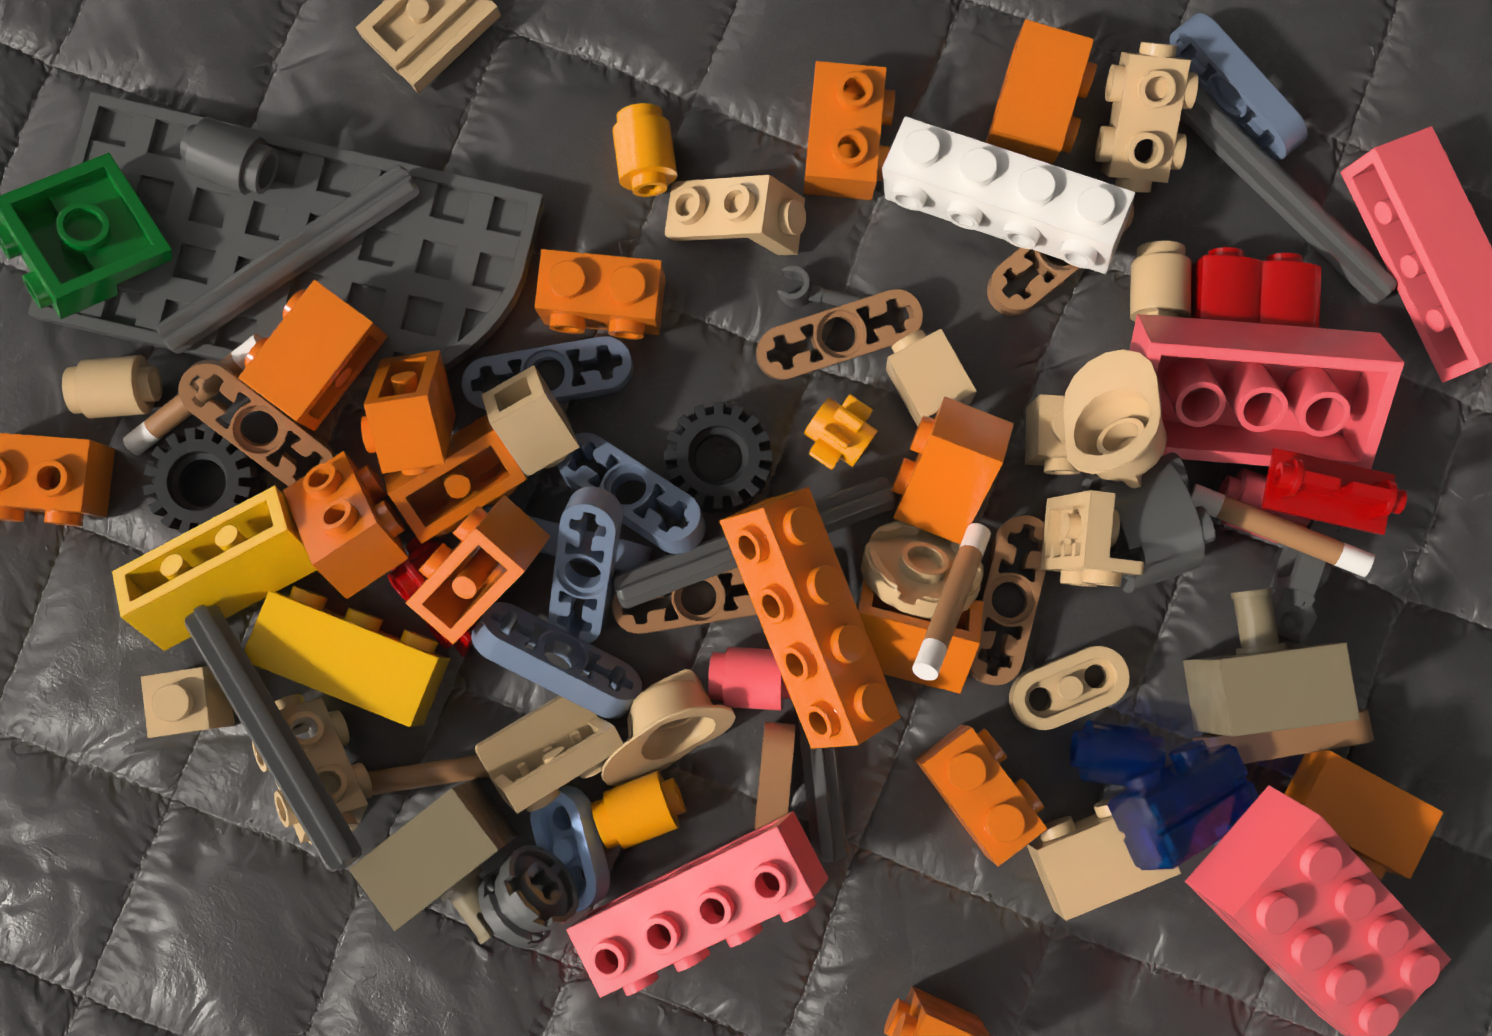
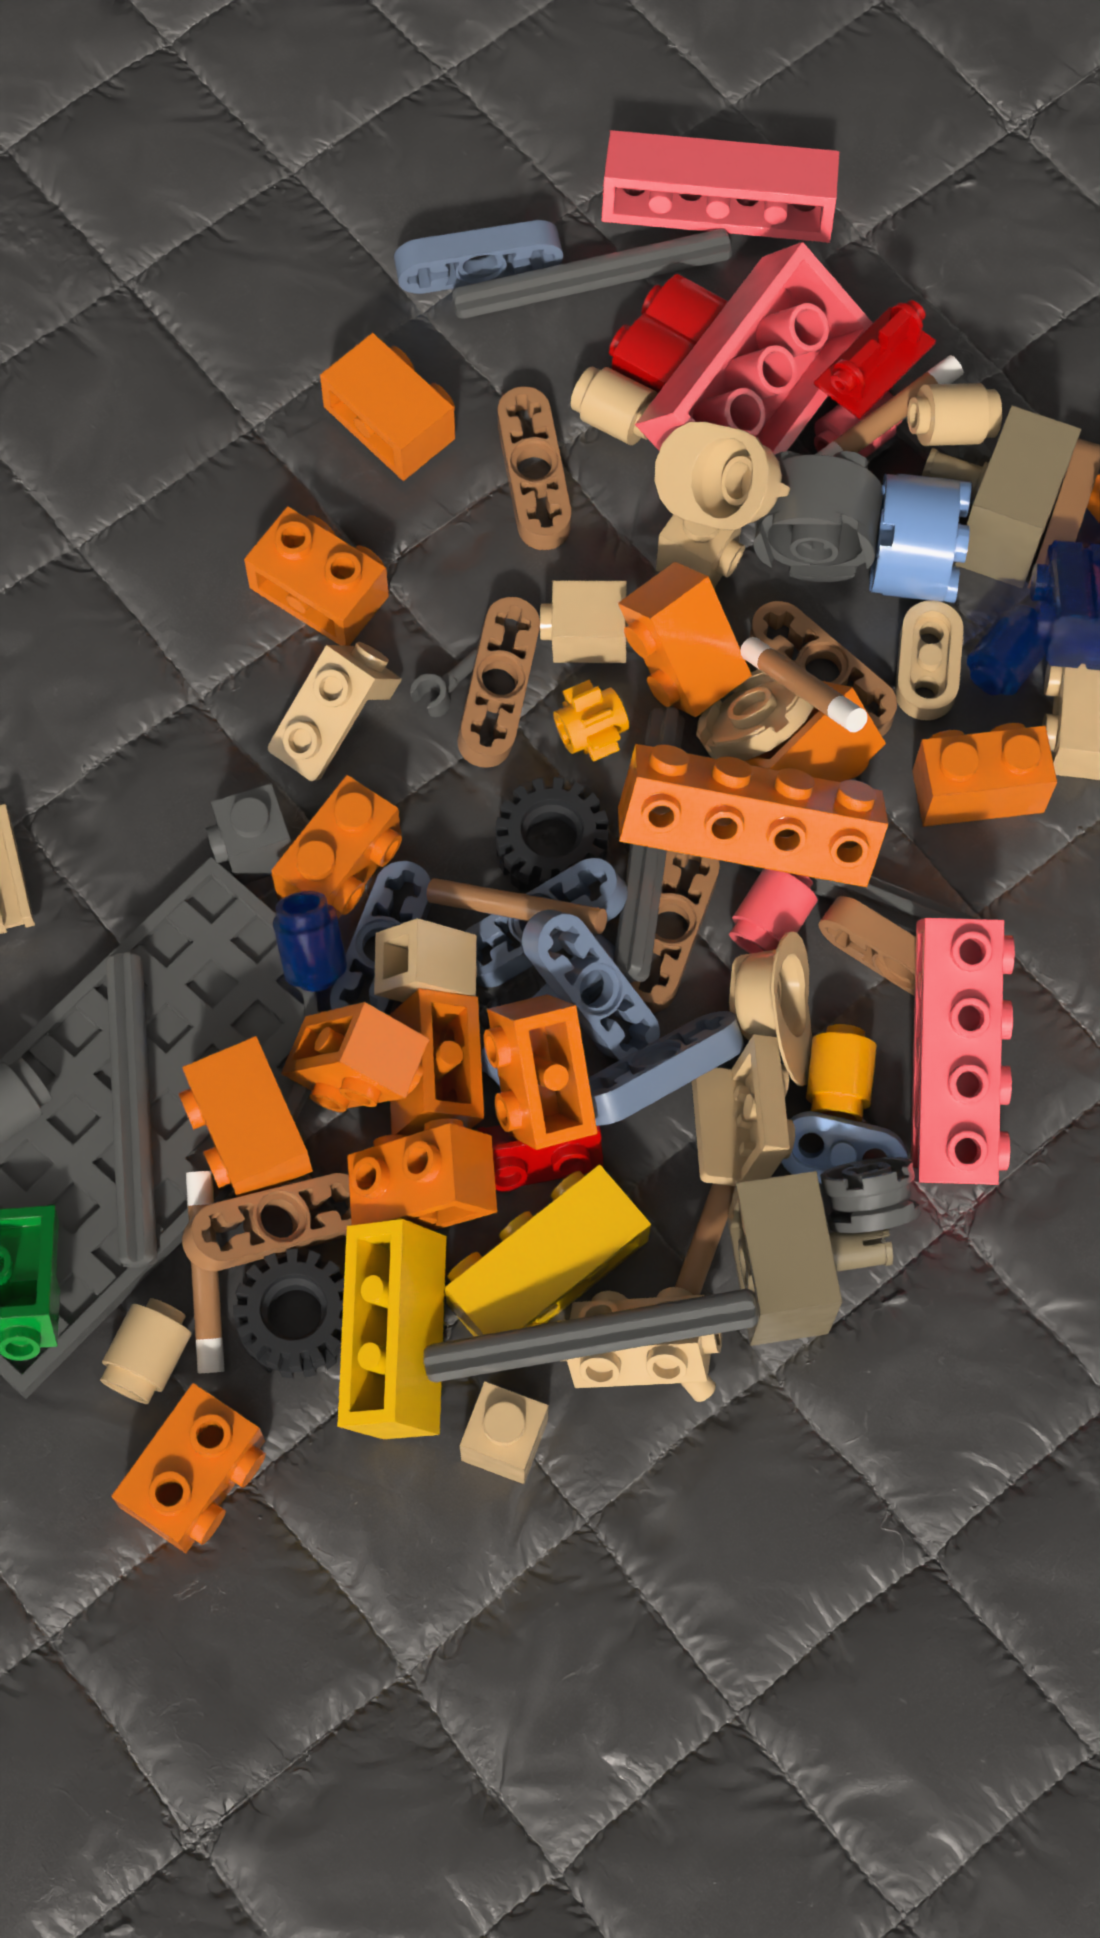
camera: 65 degrees left, 15 degrees down
(498, 315) = (309, 941): none -> clear blue brick
(578, 212) = (249, 833): none -> dark grey brick
(626, 466) = (509, 903): none -> medium nougat bar
(644, 150) = (224, 751): light orange brick -> none
(1006, 195) = (464, 472): white brick -> none
(1079, 540) = (808, 563): tan bracket -> none
(1147, 104) = (459, 332): tan brick -> none
(1176, 622) = (920, 537): none -> medium blue brick
(1313, 592) = (954, 414): none -> tan brick

